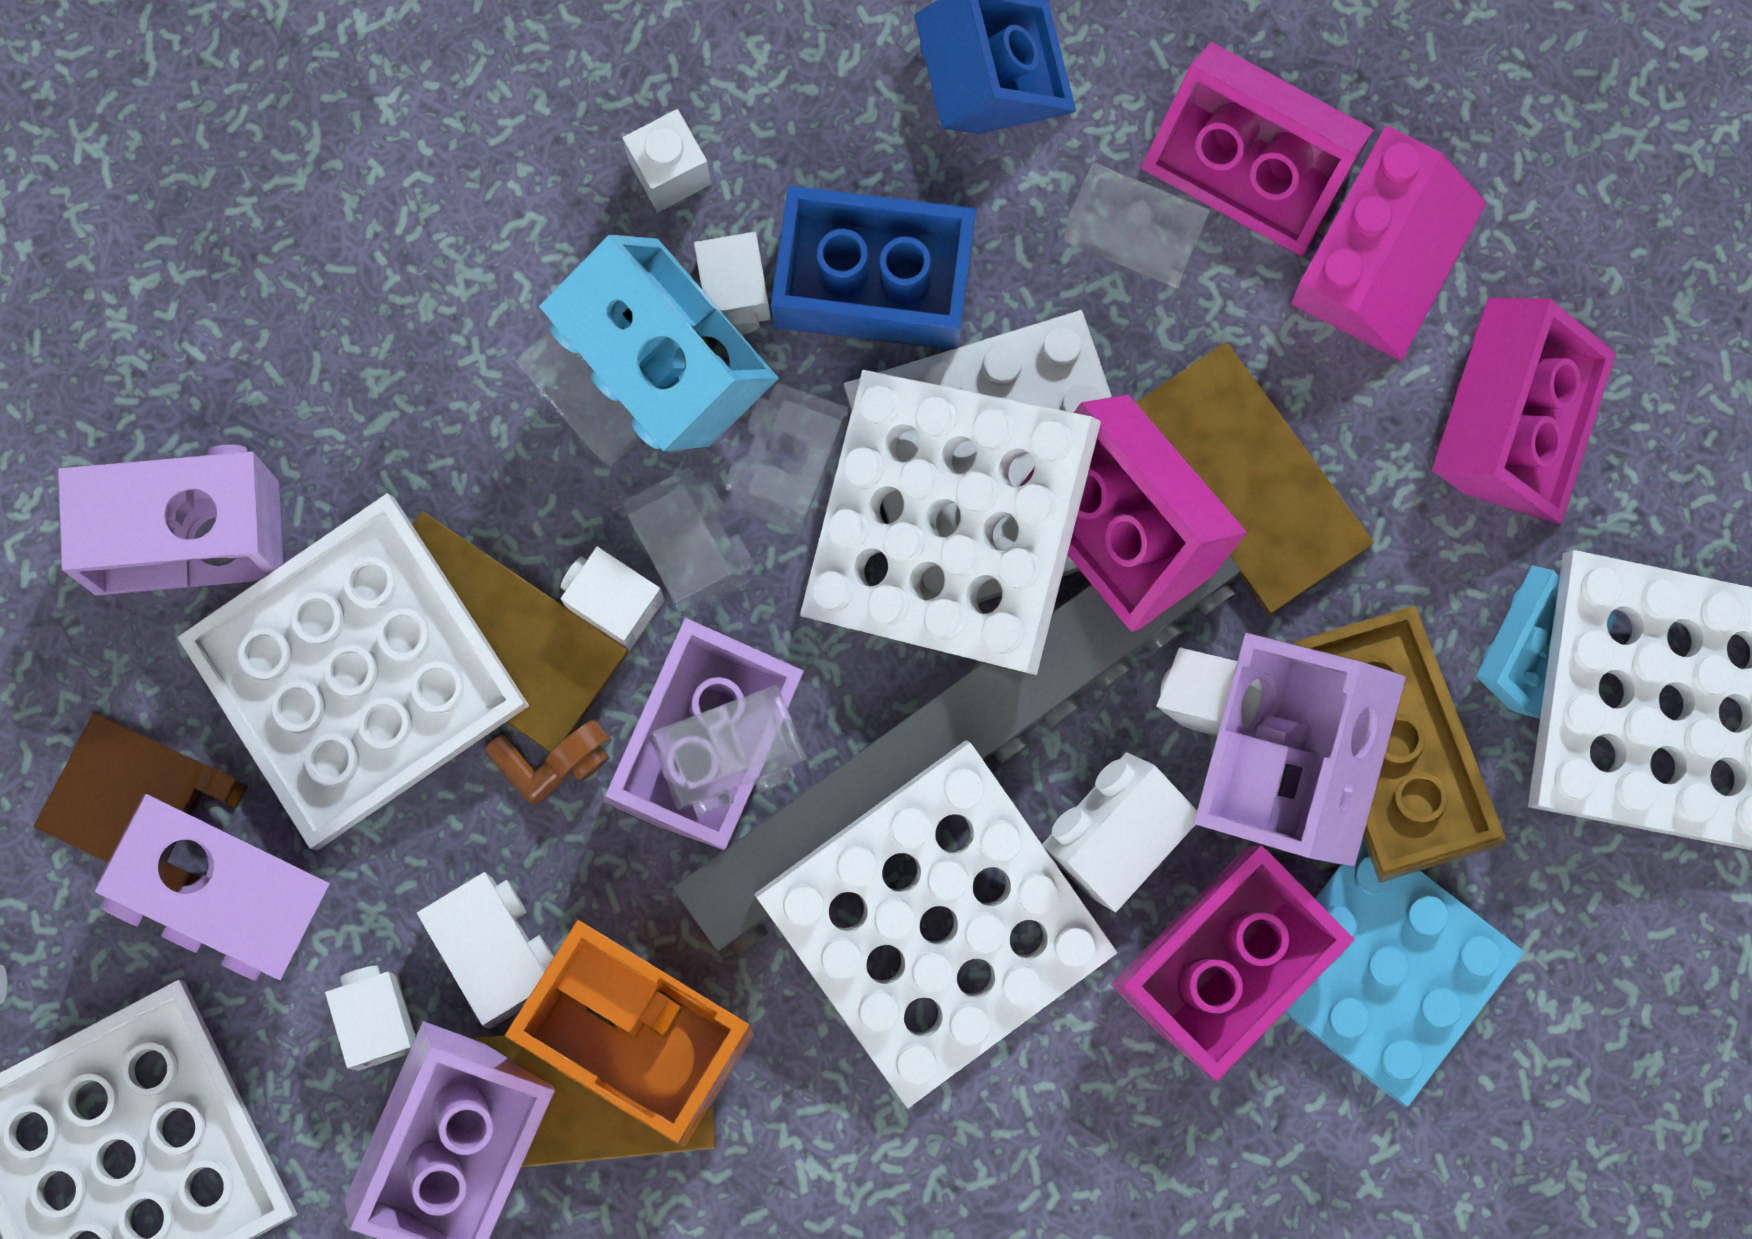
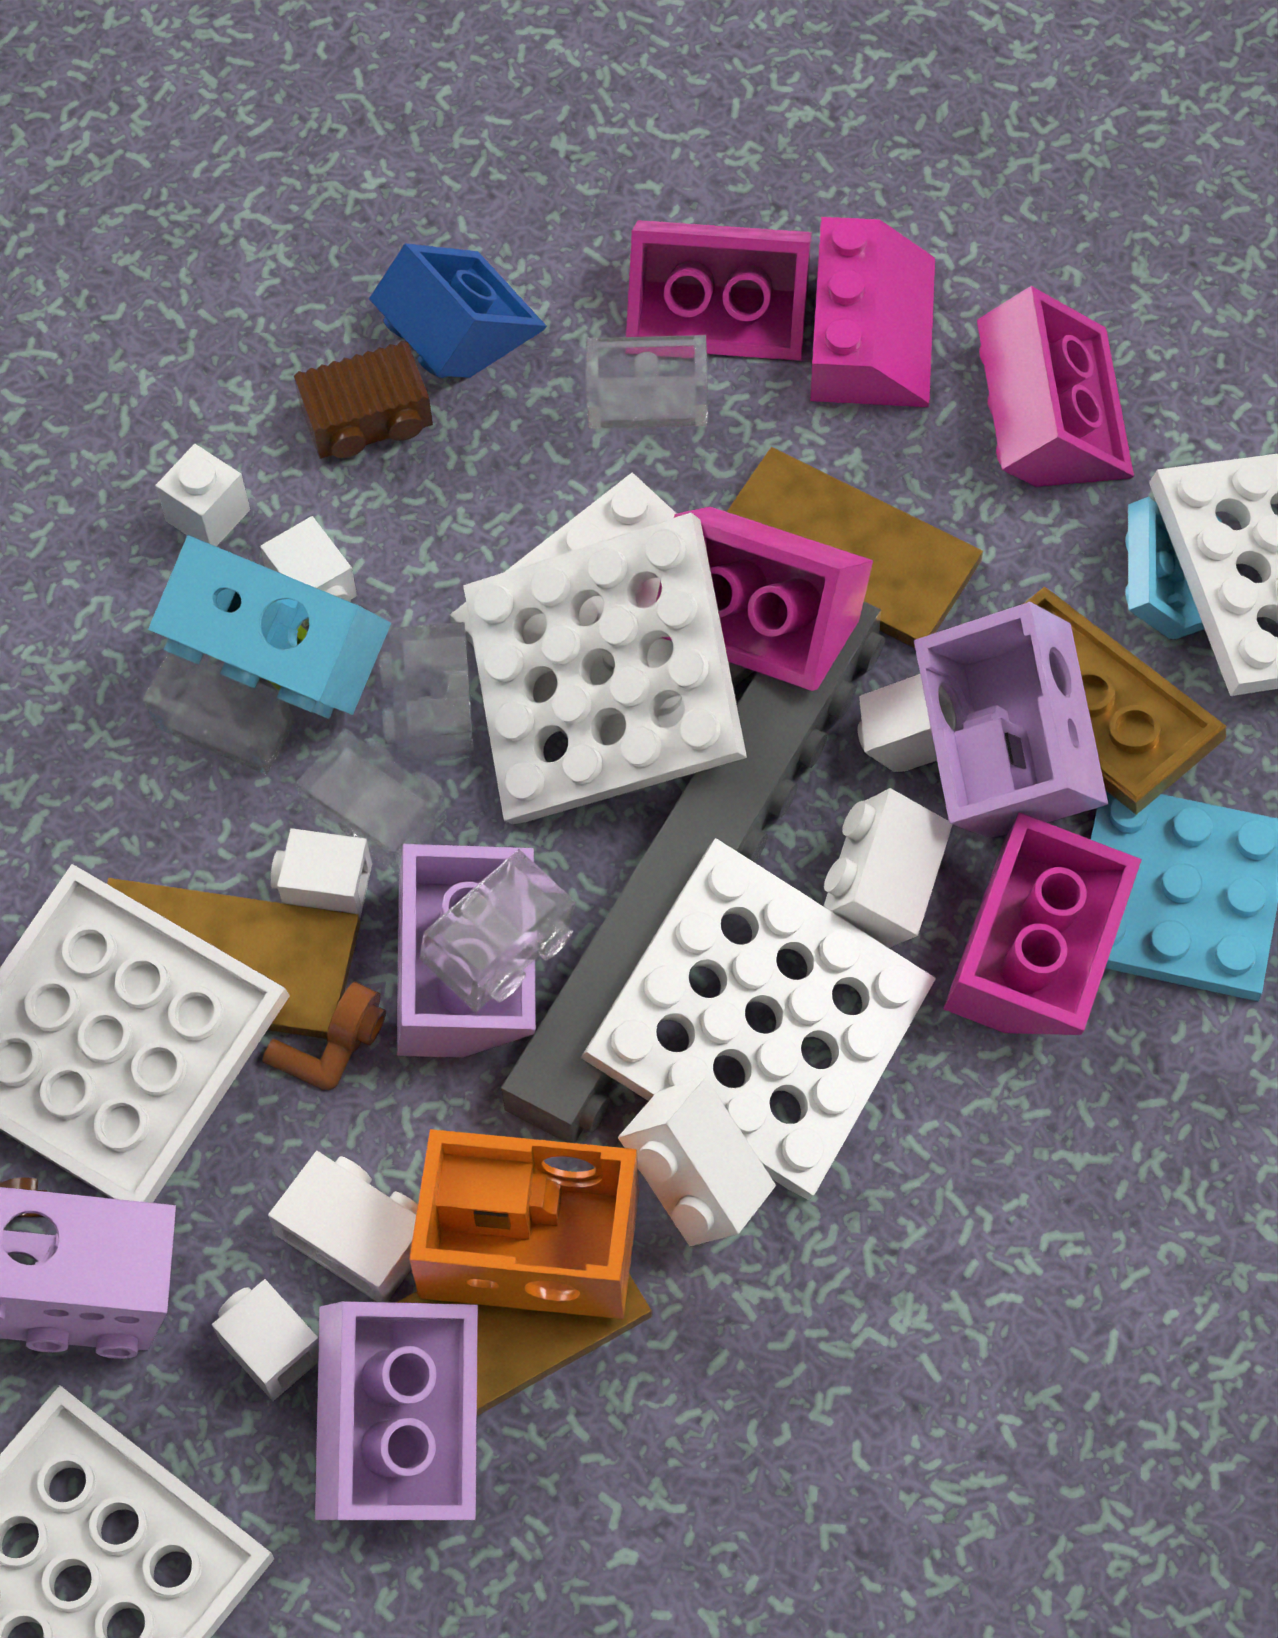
camera: 25 degrees left, 15 degrees down
(809, 1043) = (698, 1161): none -> white brick
(862, 122) = (364, 400): none -> reddish brown brick
(873, 267) = (433, 506): blue brick -> none

